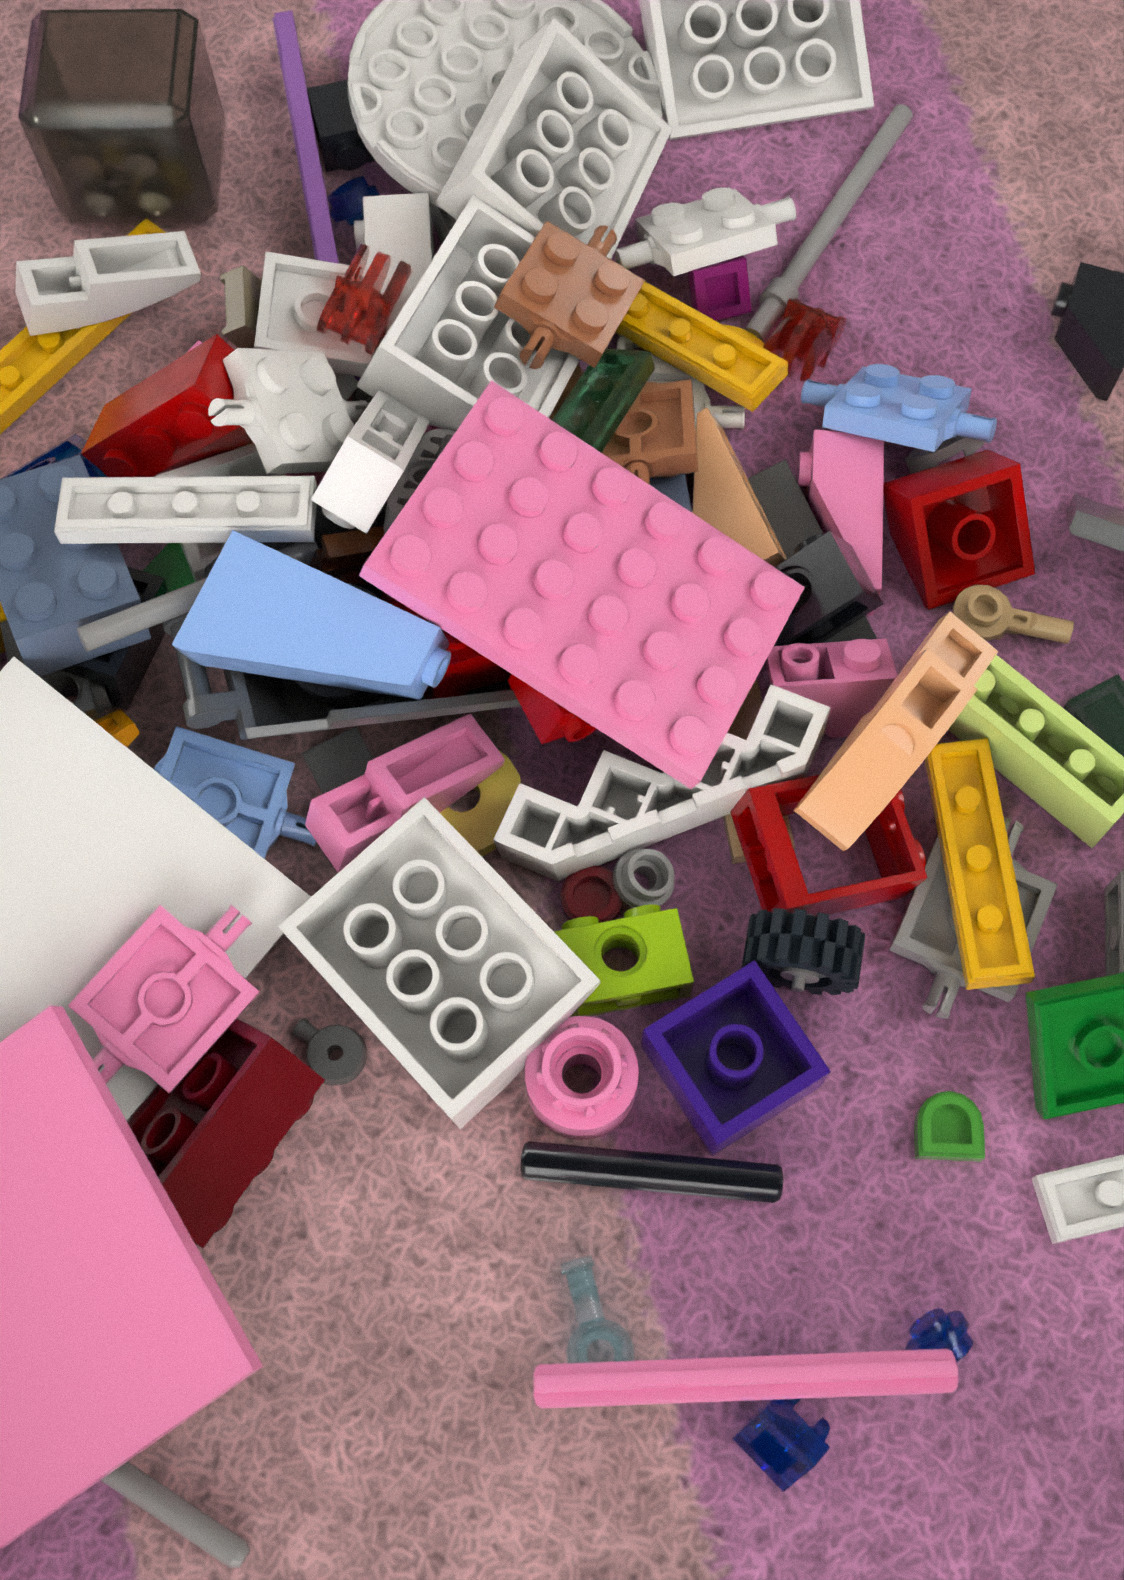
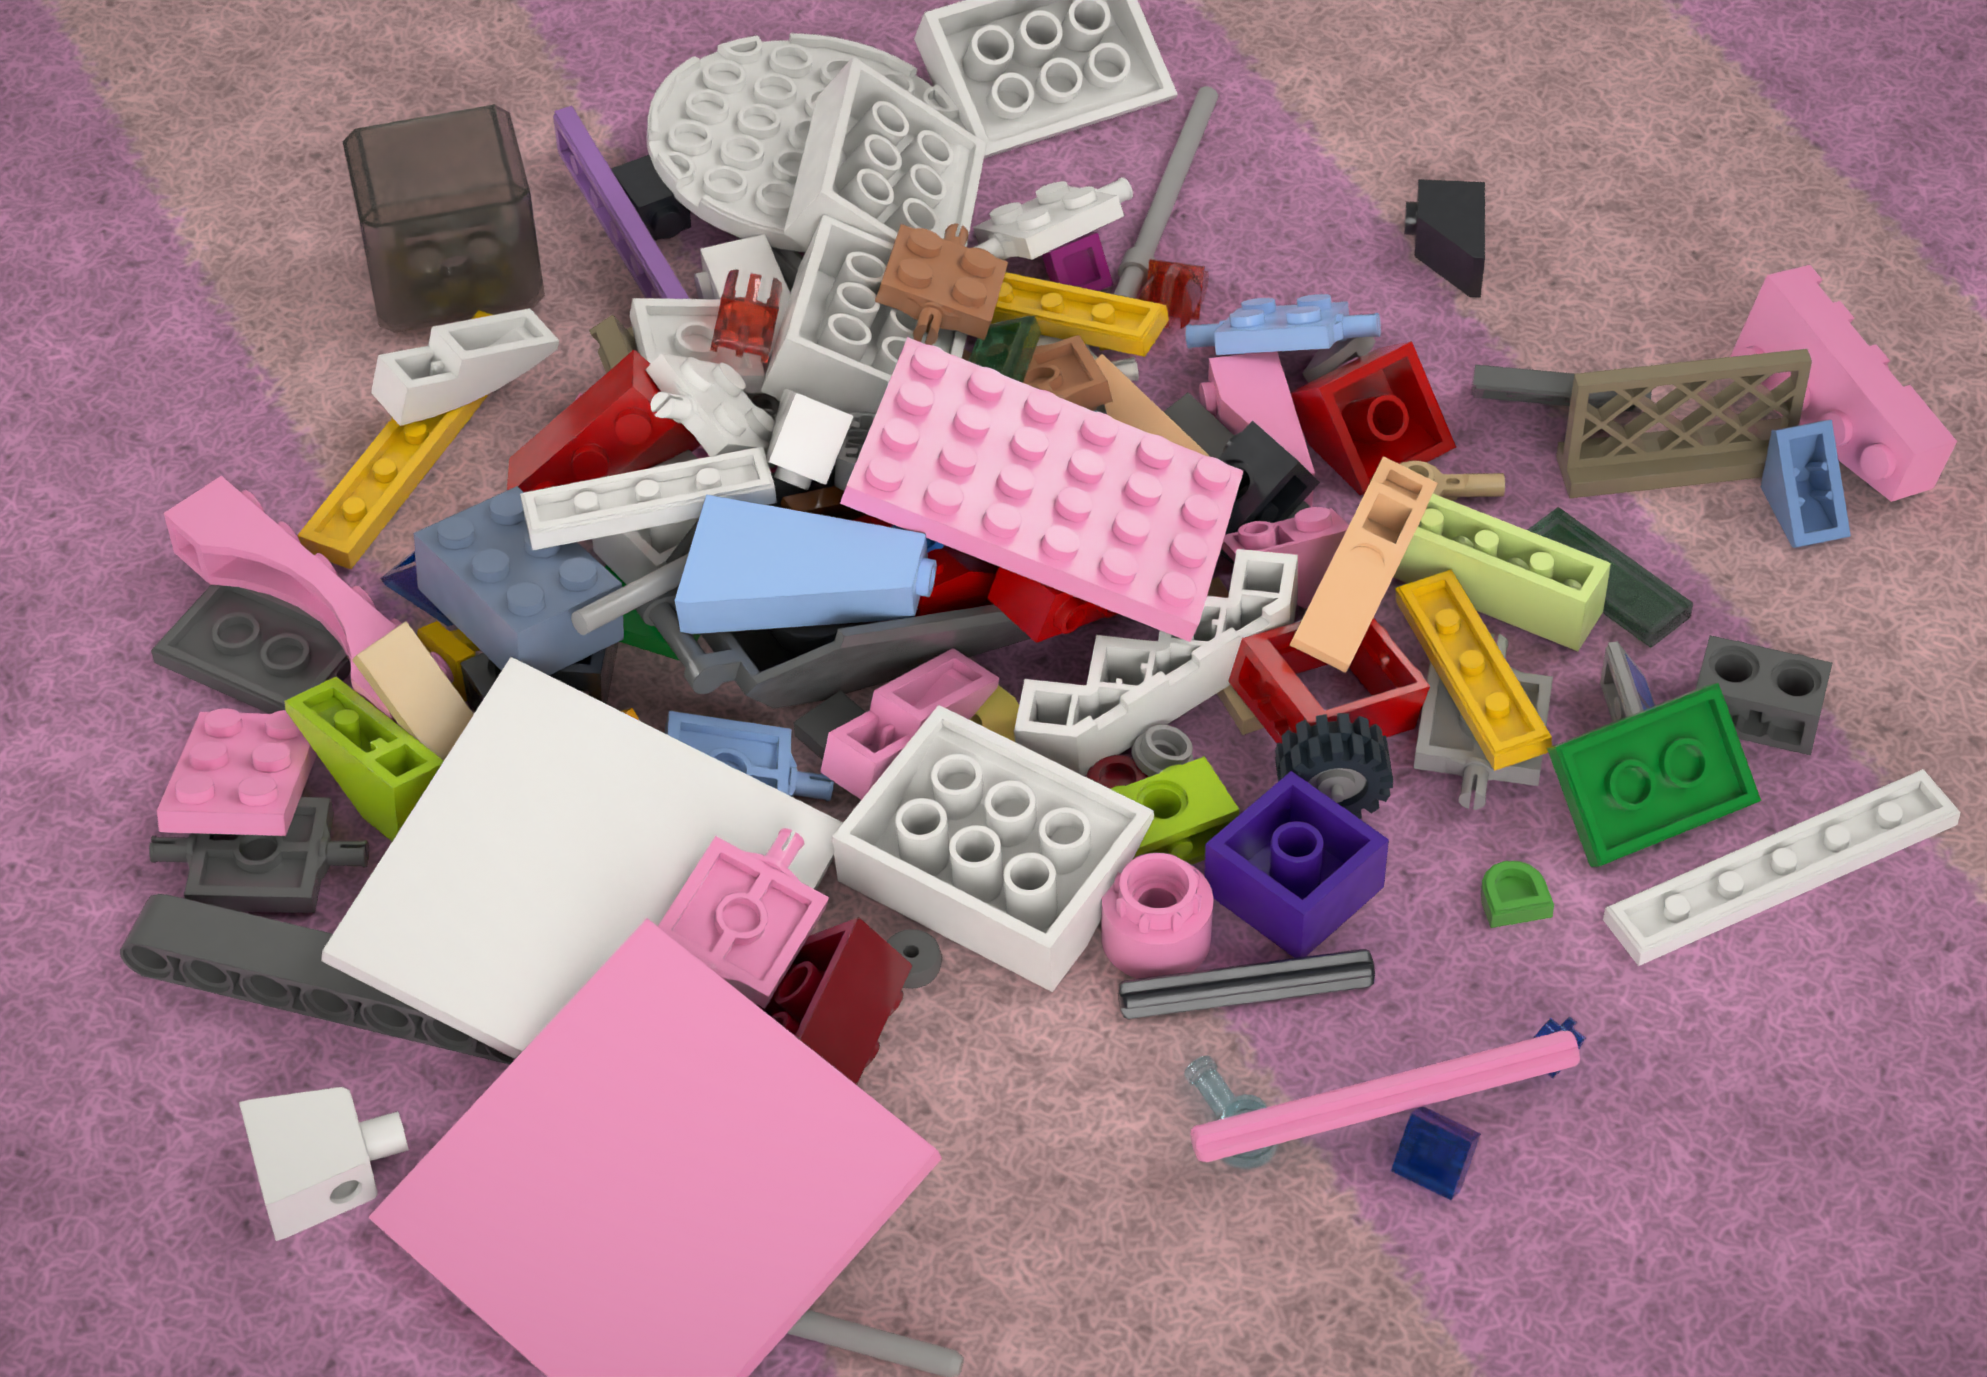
camera: 15 degrees left, 20 degrees down
(348, 200) = (685, 258): clear blue plate -> none

